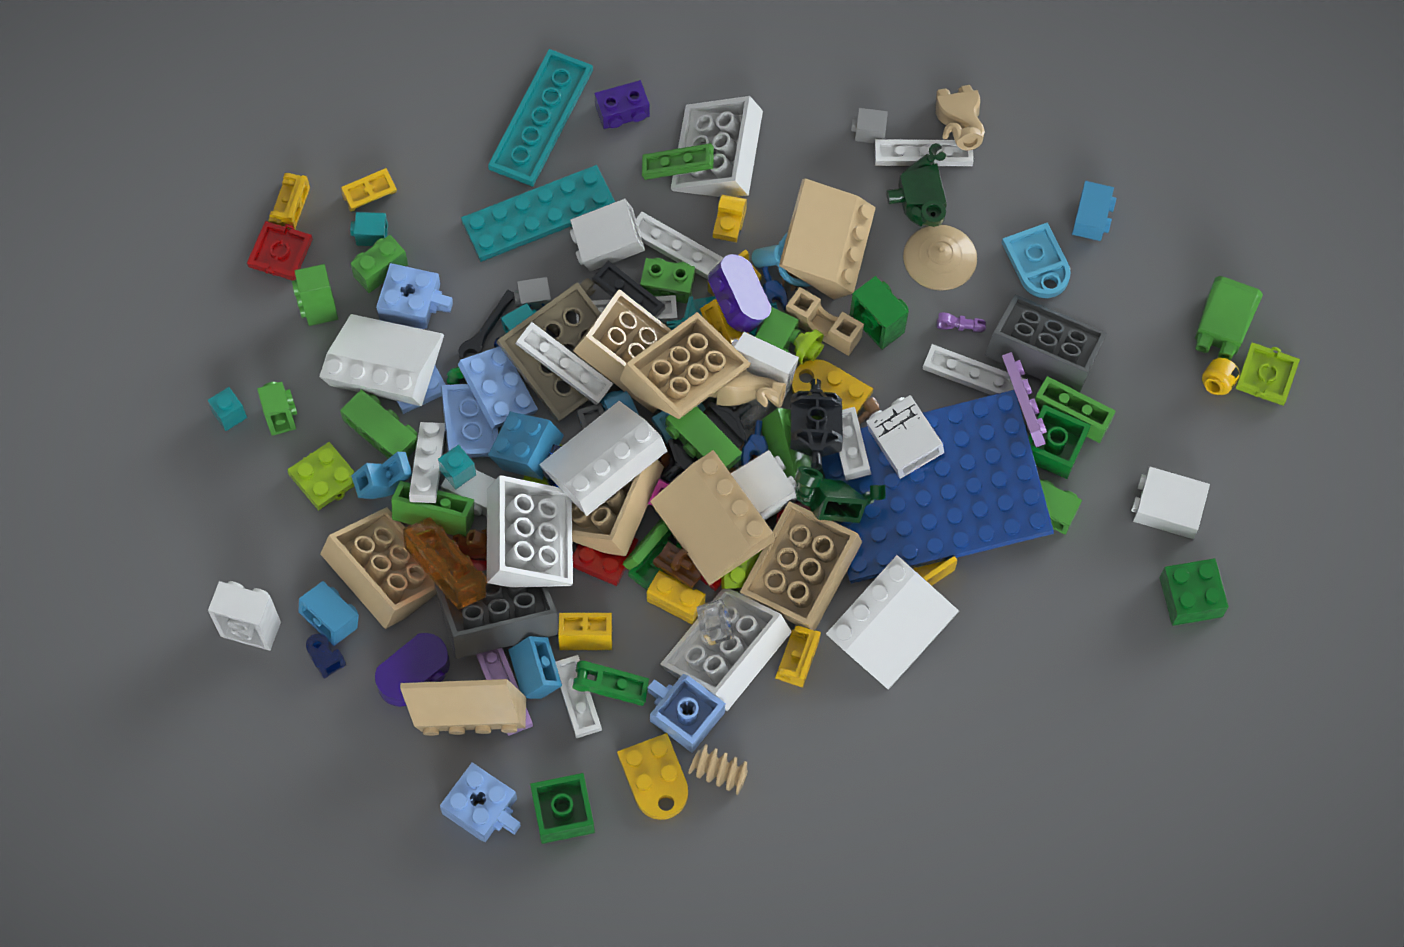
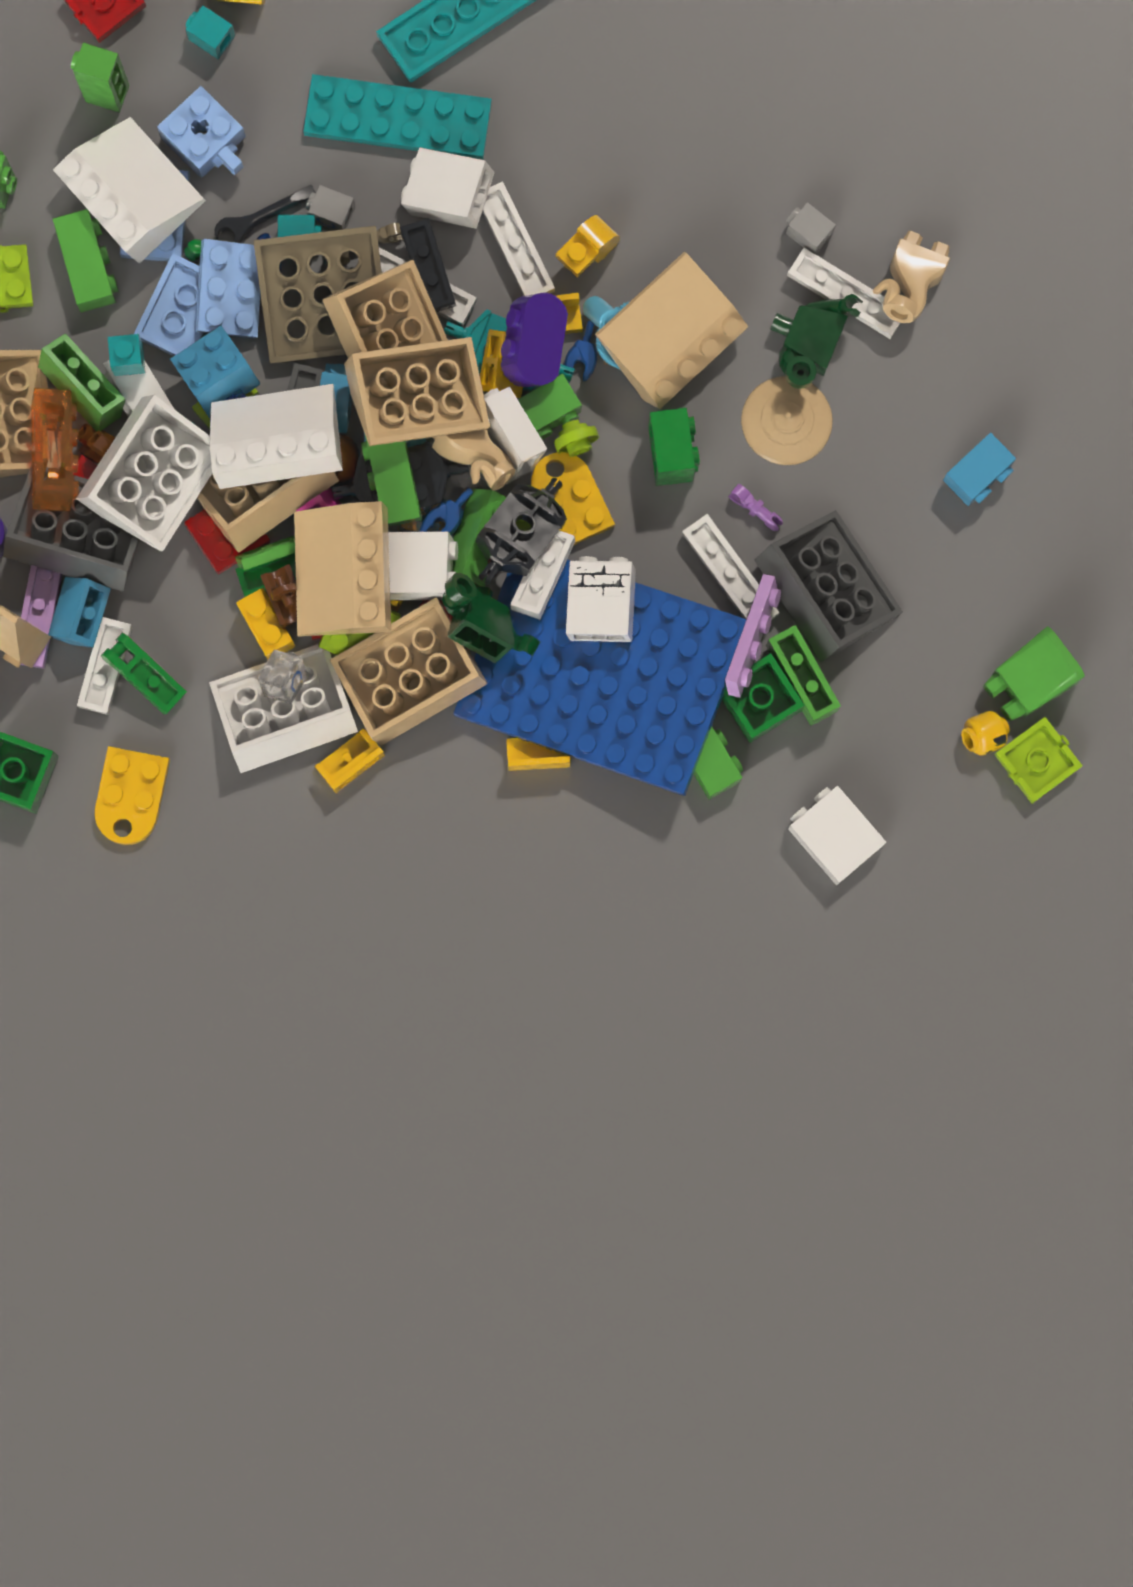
camera: 30 degrees right, 15 degrees up
(372, 266) = (186, 74): bright green brick -> none
(381, 480) = (51, 317): dark azure brick -> none
(426, 466) = (112, 320): white plate -> none
(564, 363) = (307, 306): white plate -> none
(585, 631) = (154, 603): yellow hinge -> none
(622, 105) = (561, 46): dark purple brick -> none
(668, 278) = (480, 274): bright green brick -> none
(678, 161) = (576, 147): bright green tile -> none
(685, 695) = (180, 744): light blue hinge -> none
(719, 768) = (194, 826): tan piece -> none
(734, 132) = (630, 156): white slope -> none
(839, 332) = (605, 414): tan arch -> none
(871, 406) = (600, 545): medium nougat hand -> none
(892, 622) = (461, 785): white slope -> none
(1037, 259) = (884, 487): medium azure plate -> none
(1193, 591) = (792, 942): green brick -> none

